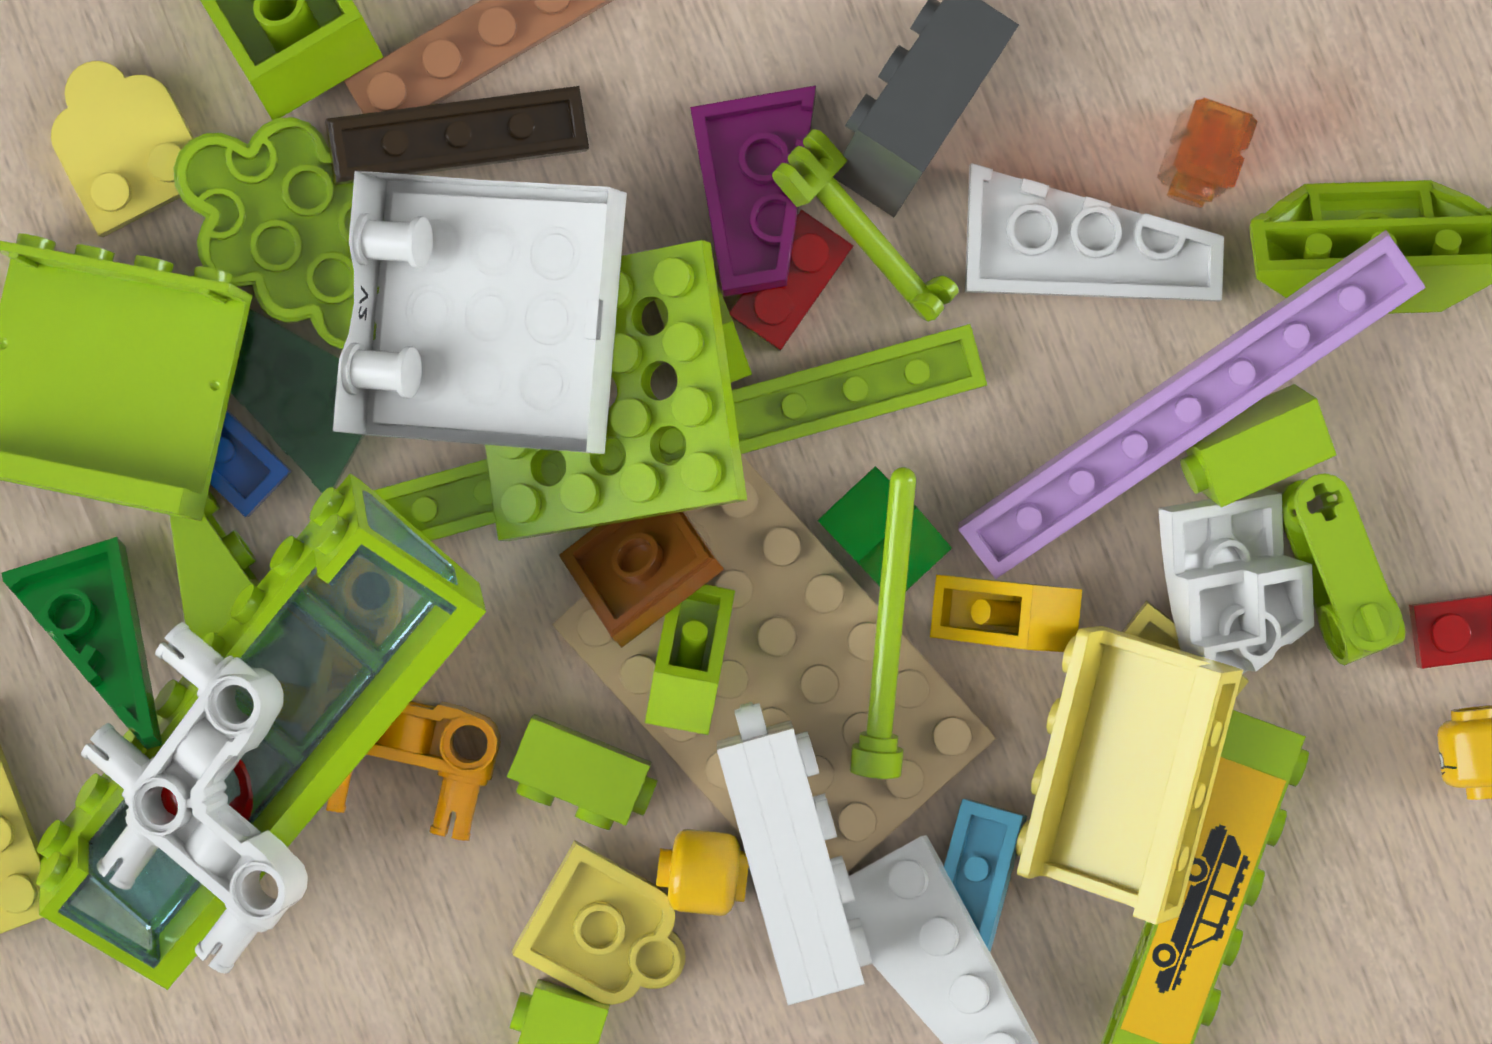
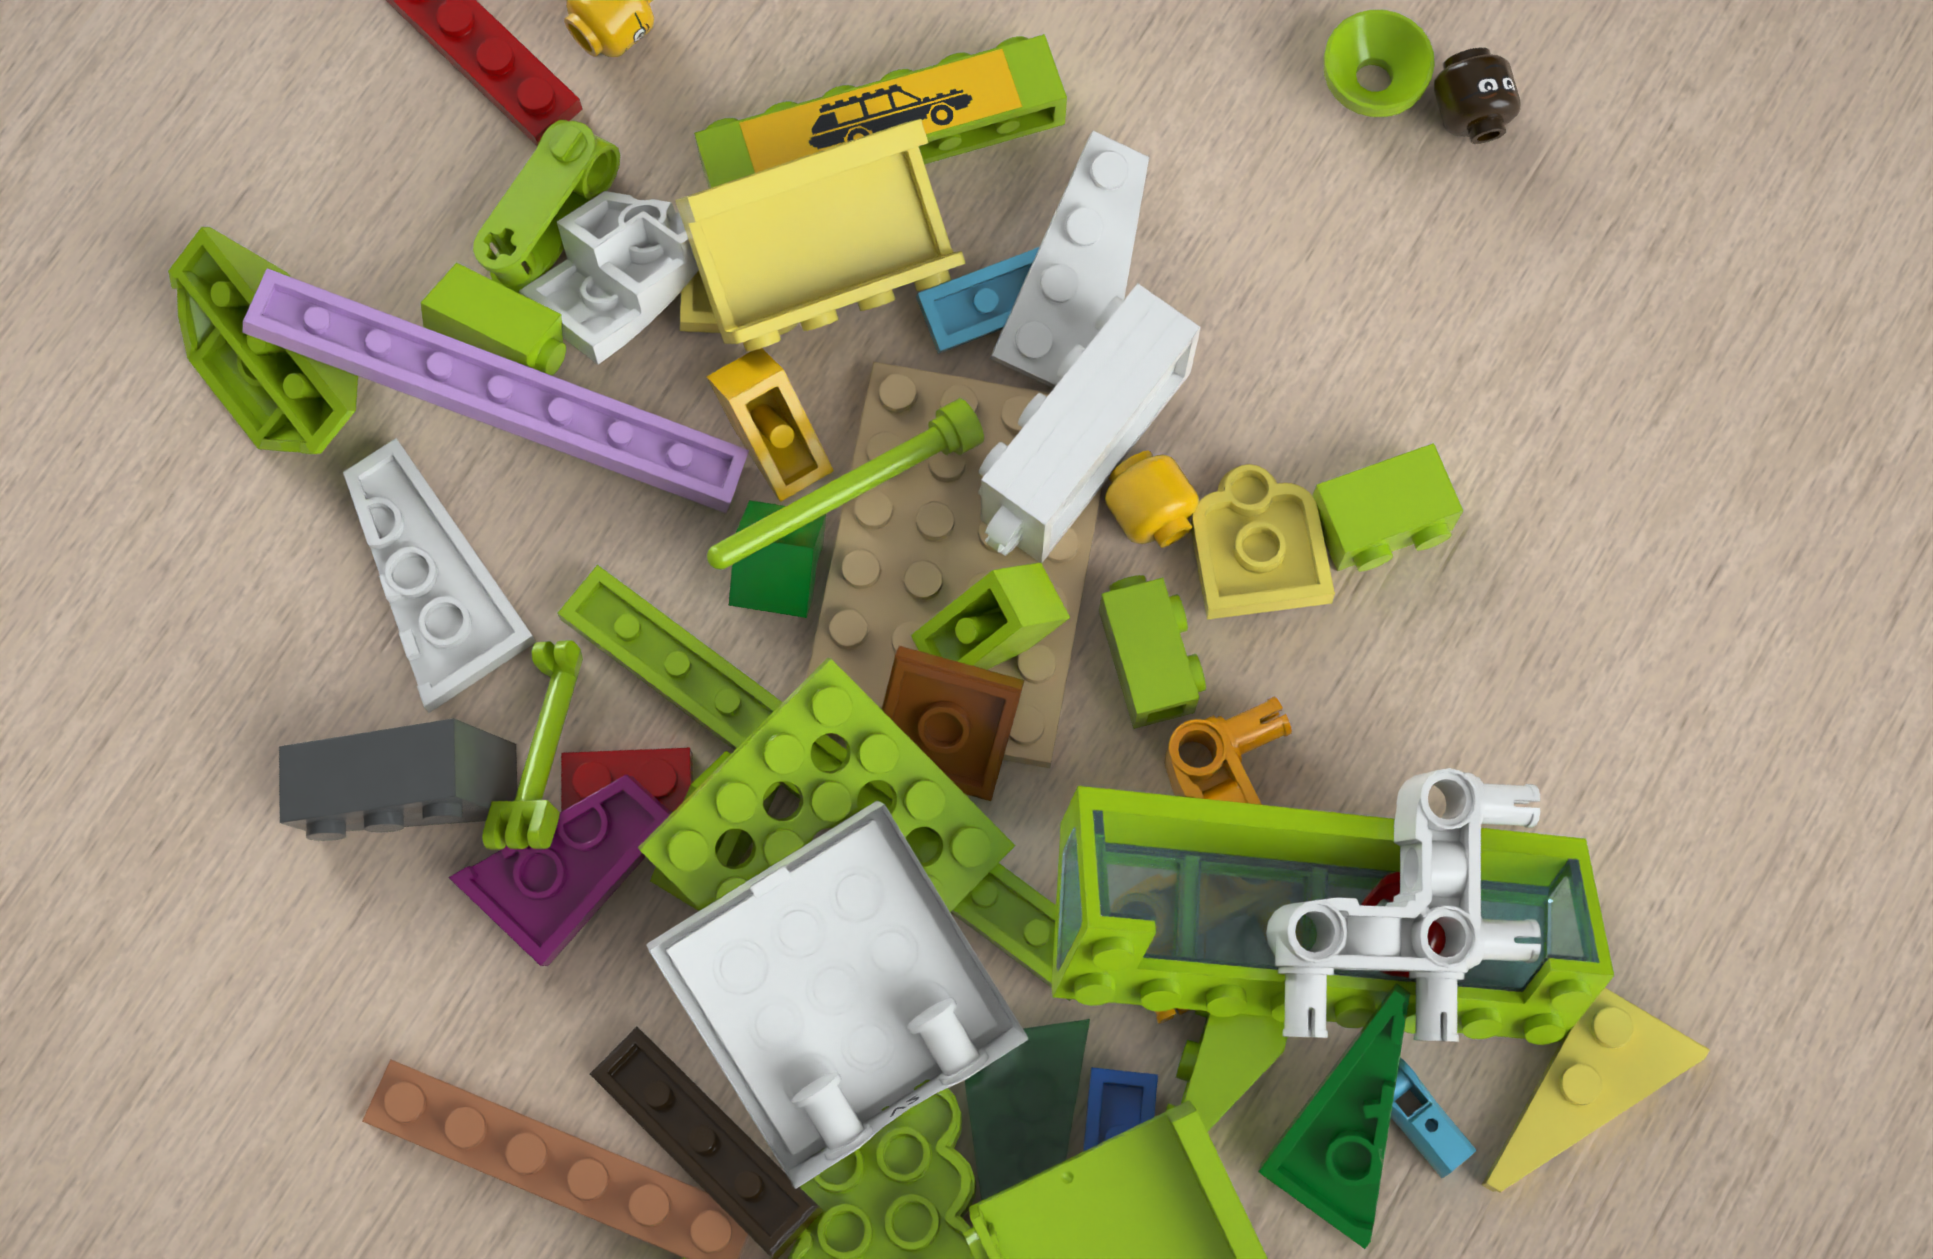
camera: 130 degrees left, 15 degrees down
(48, 695) = (1429, 1125): none -> medium azure bar
(1205, 151) = (281, 526): clear orange brick -> none

